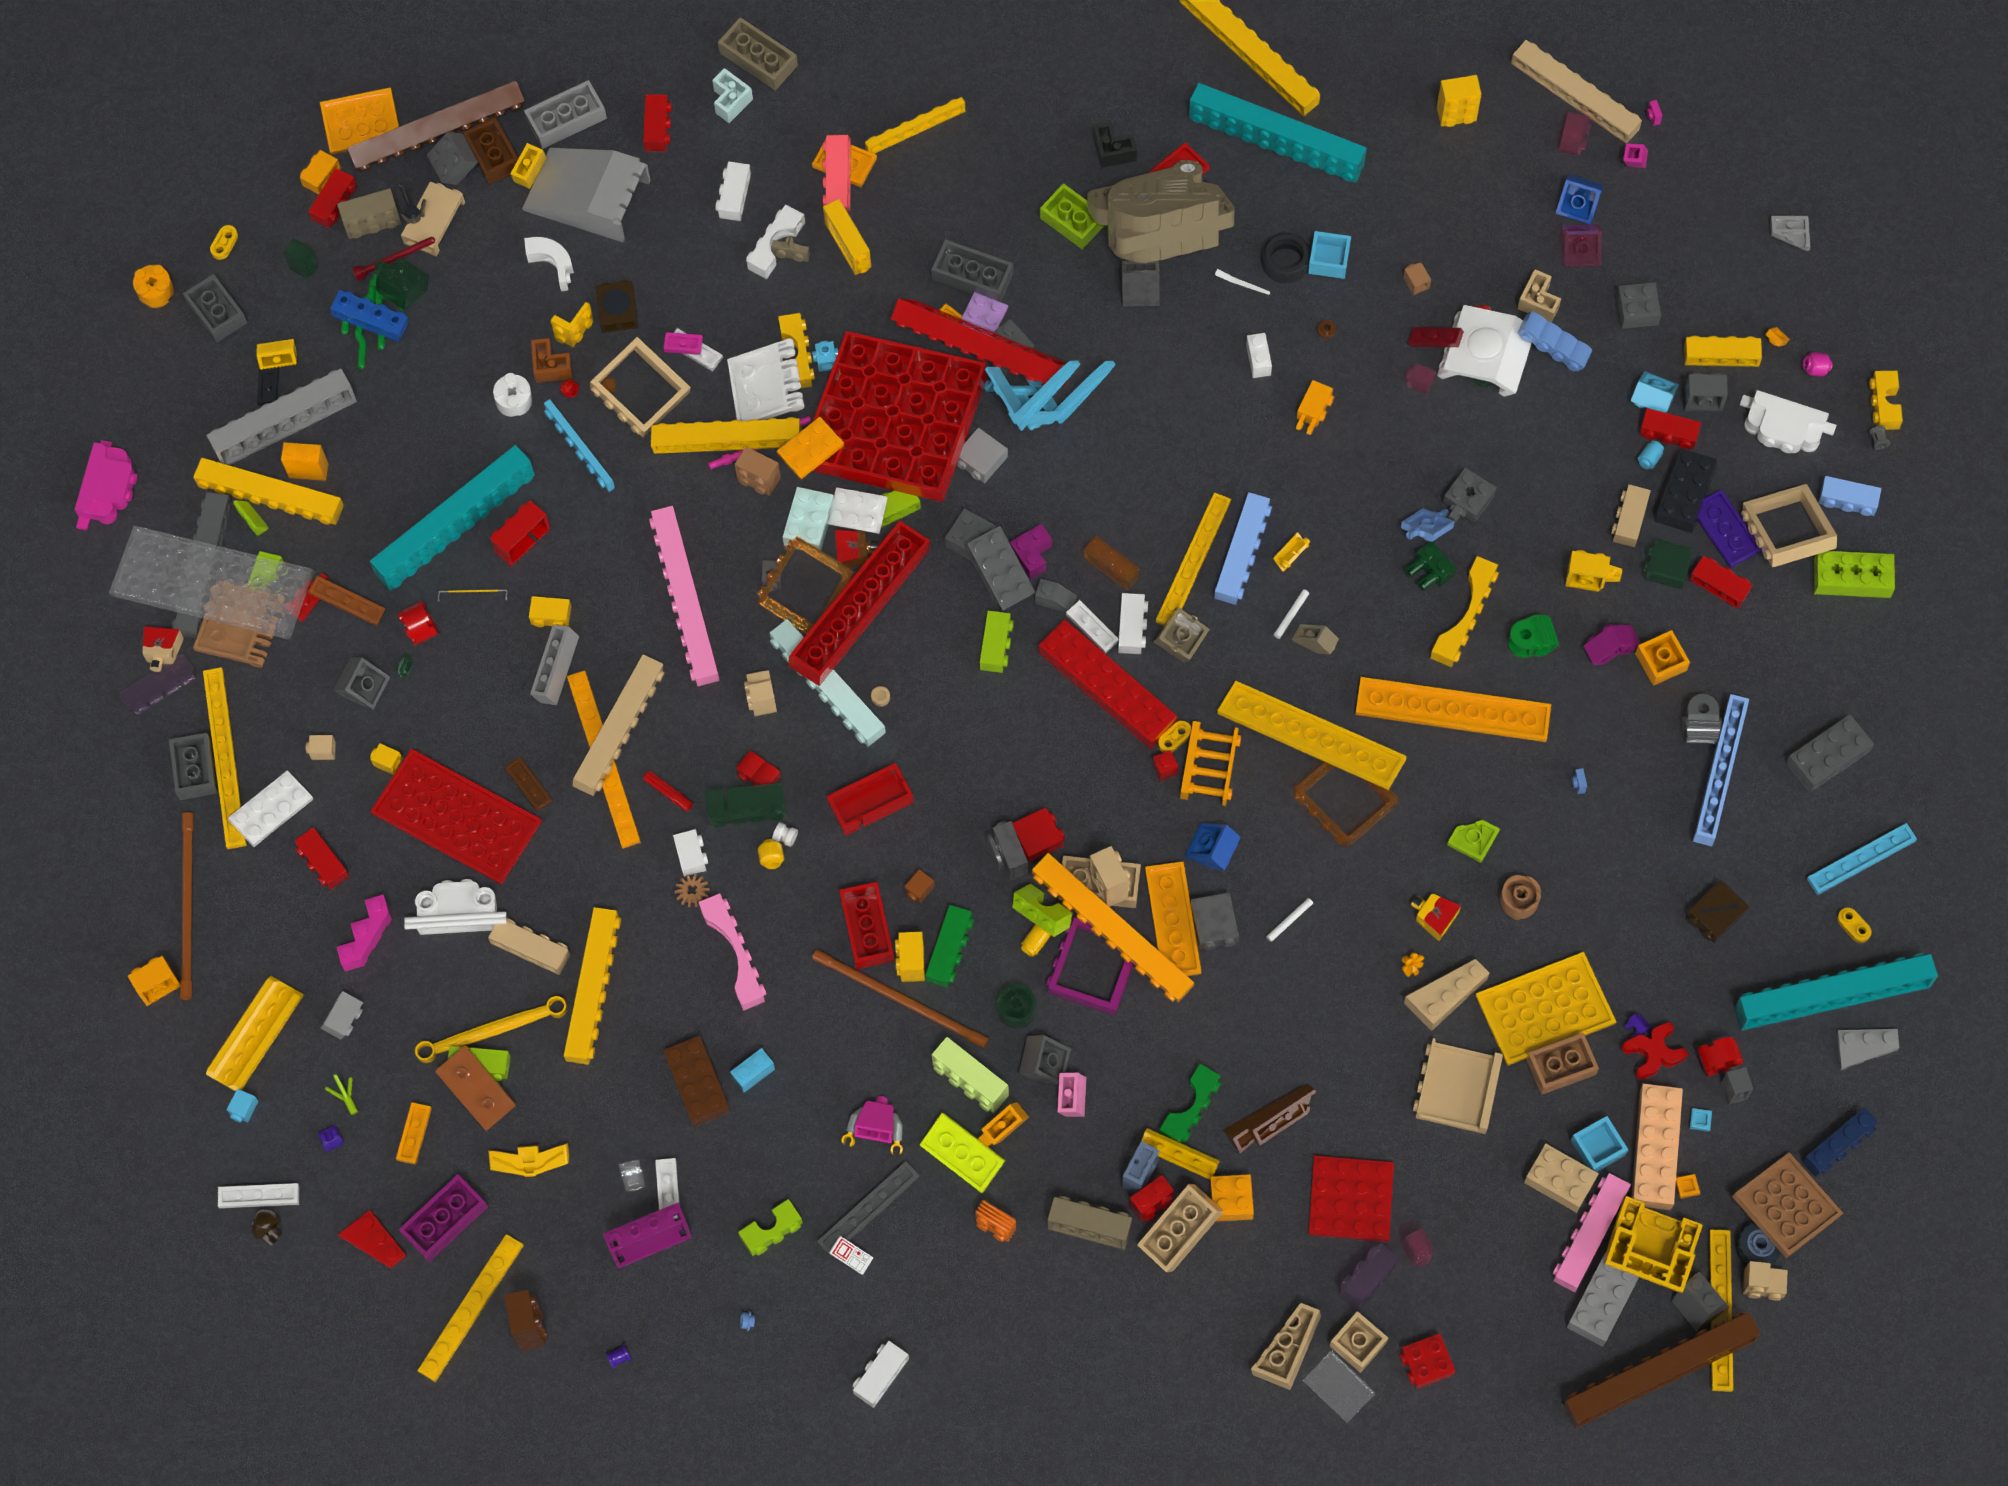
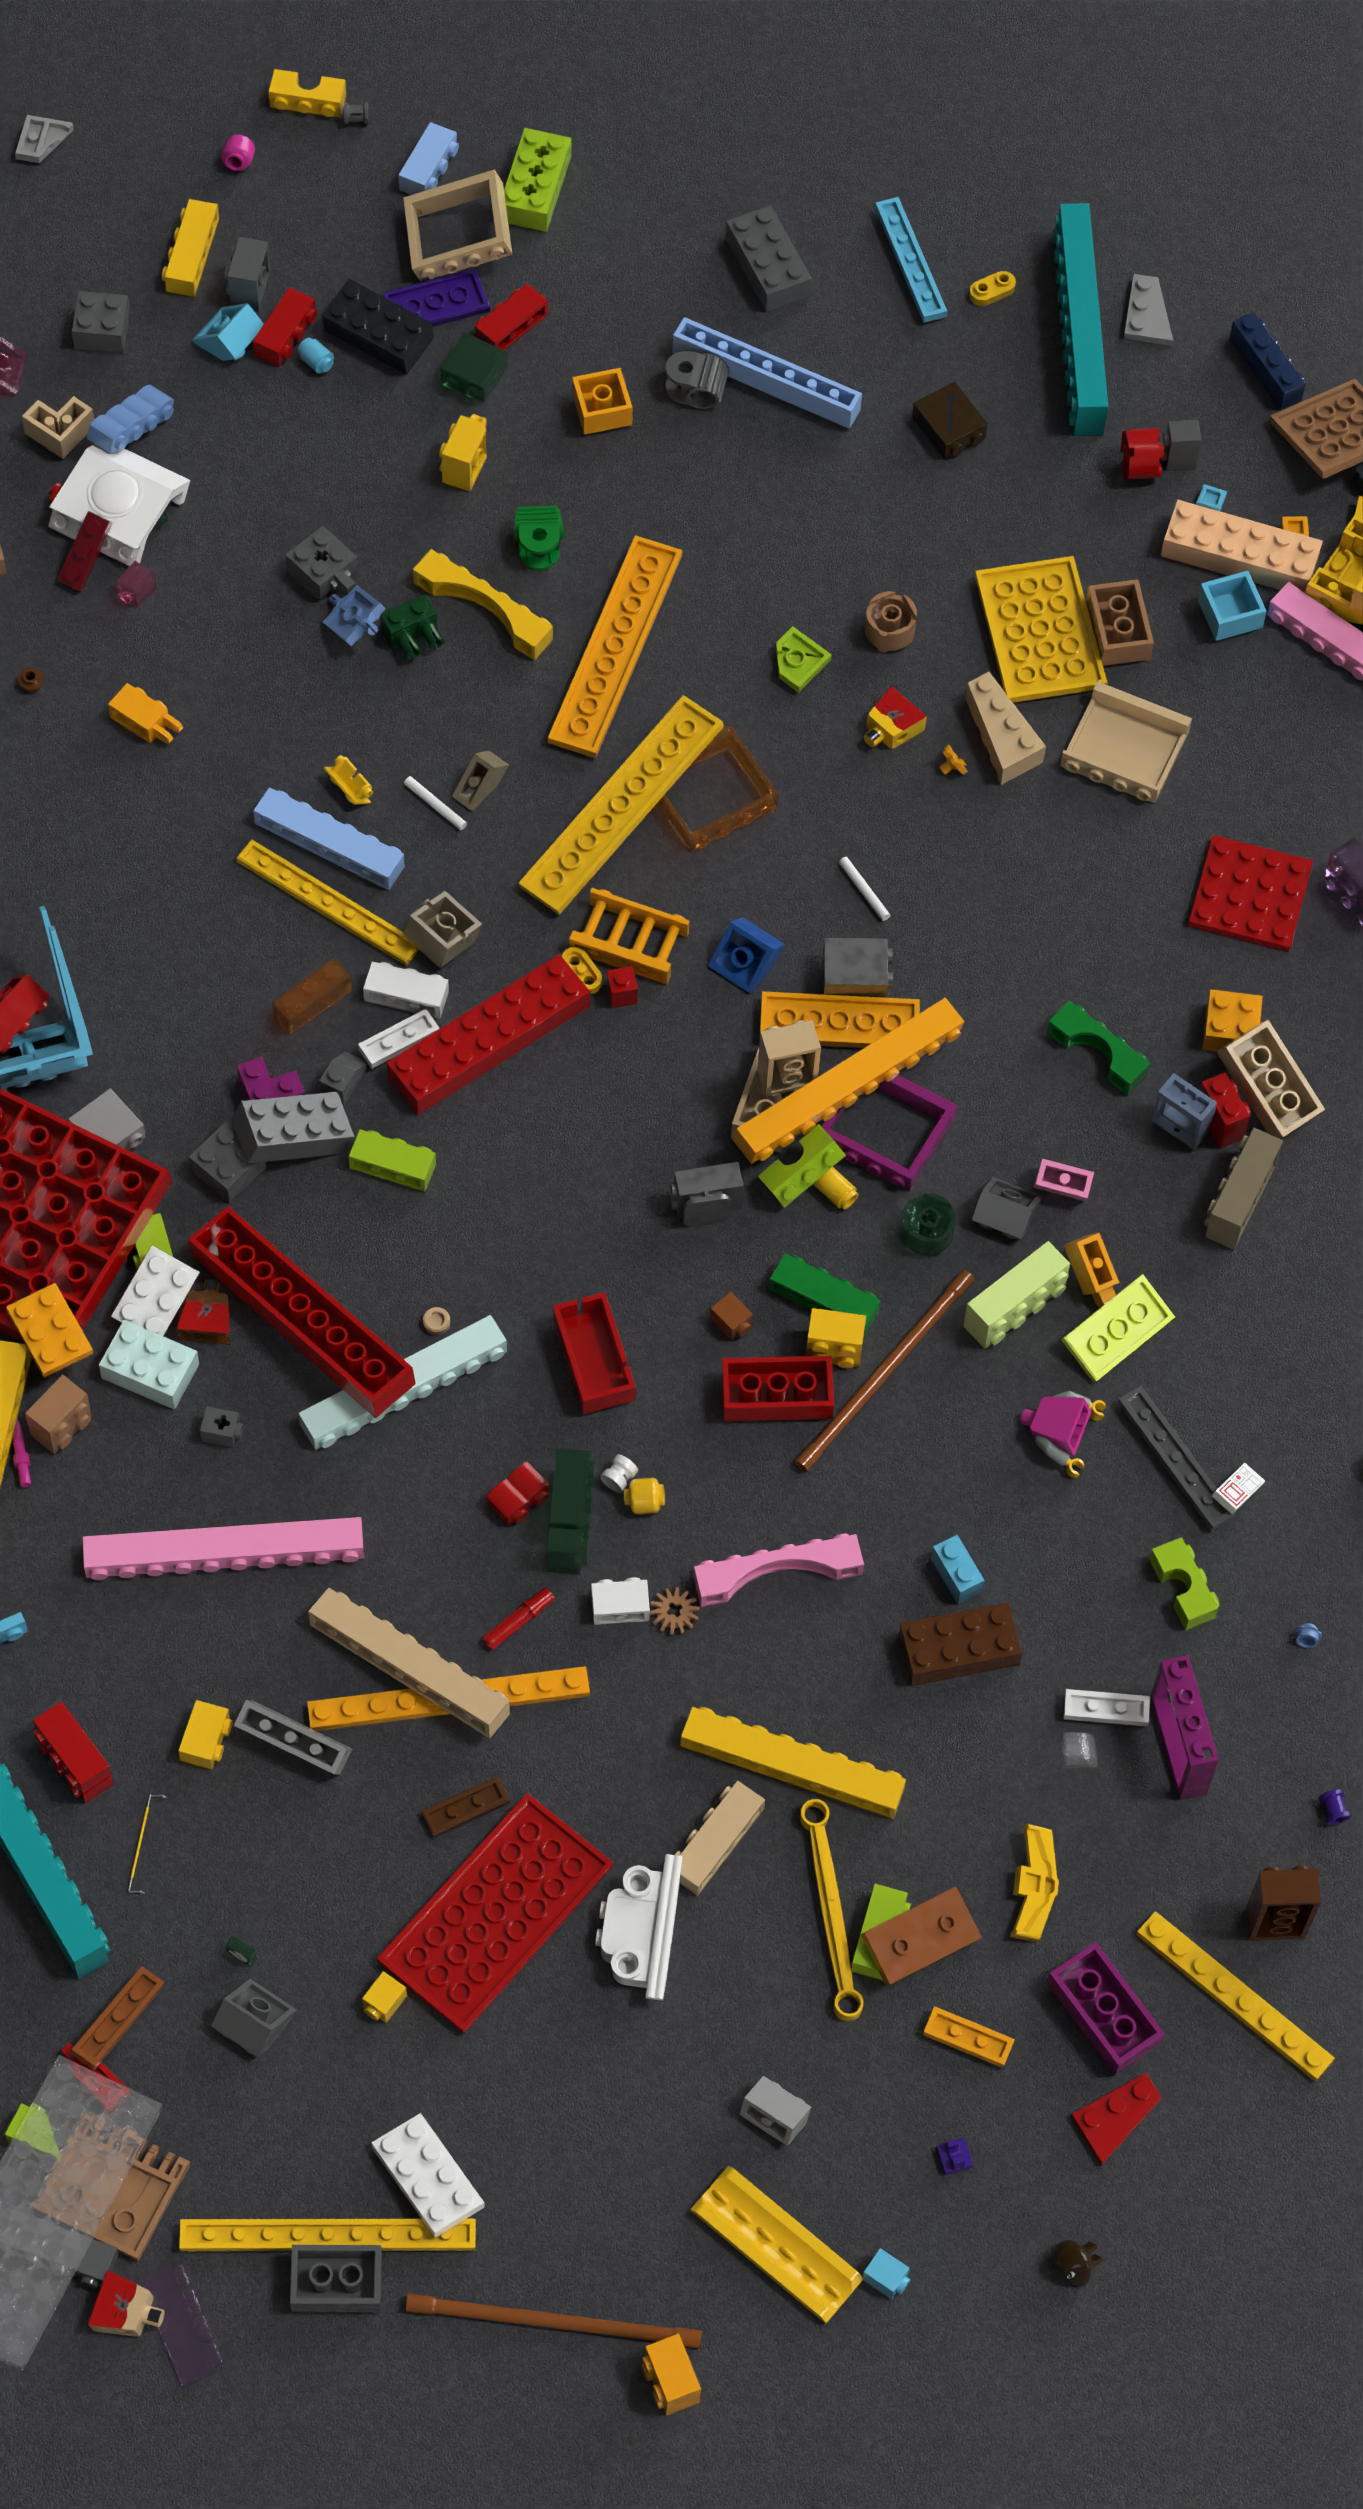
camera: 85 degrees left, 5 degrees down
(258, 1195) = (1026, 2268): white plate -> none
(321, 747) = (344, 2088): tan brick -> none
(321, 859) = (523, 2111): red brick -> none
(346, 1097) = (899, 2124): lime plant -> none
(366, 934) = (655, 2061): dark pink brick -> none
(418, 623) = (180, 1917): red brick -> none
(760, 693) = (400, 1468): tan brick -> none
(781, 562) = (275, 1352): clear orange window -> none
(996, 1221) = (1223, 1299): orange brick -> none
(1038, 834) = (686, 1149): red brick -> none
(1181, 1154) = (1170, 1060): yellow plate -> none
(1259, 355) = (49, 763): white brick -> none
(1271, 1119) = (1131, 961): reddish brown wedge -> none
(1418, 1248) = (1334, 823): clear pink brick -> none
(1561, 1178) = (1265, 656): tan brick -> none
(1579, 781) = (746, 527): medium blue plate -> none
(1611, 642) = (572, 450): magenta brick -> none
(1630, 515) = (395, 394): tan brick -> none
(1641, 1025) = (1076, 535): dark purple tile -> none
(1655, 1051) = (1117, 525): red piece -> none
(1777, 337) = (188, 187): light orange plate -> none
(1785, 423) = (310, 205): white brick -> none

